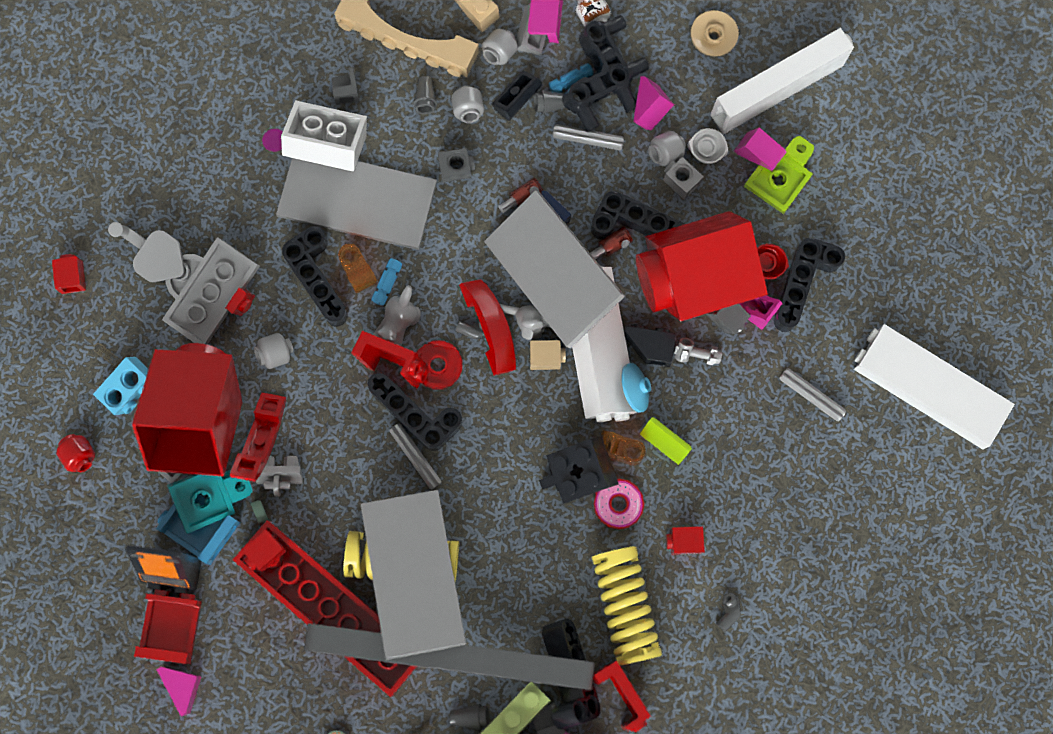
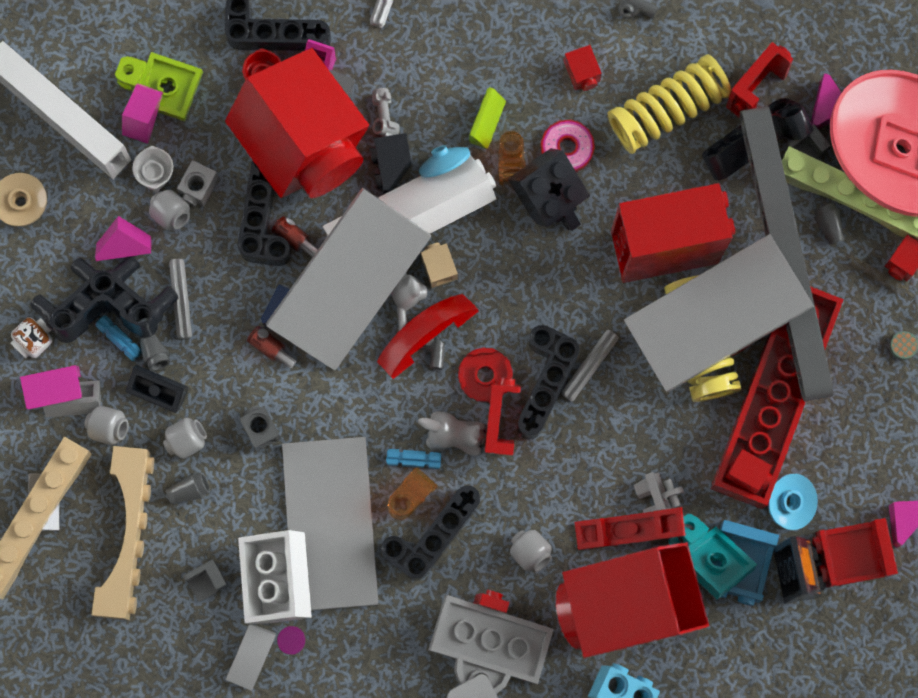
camera: 105 degrees left, 0 degrees up
(223, 592) = (802, 502): none -> medium azure dish
(259, 512) = (705, 503): sand green tile -> none
(270, 102) = (250, 656): none -> light grey slope
(498, 555) = (671, 232): none -> red brick

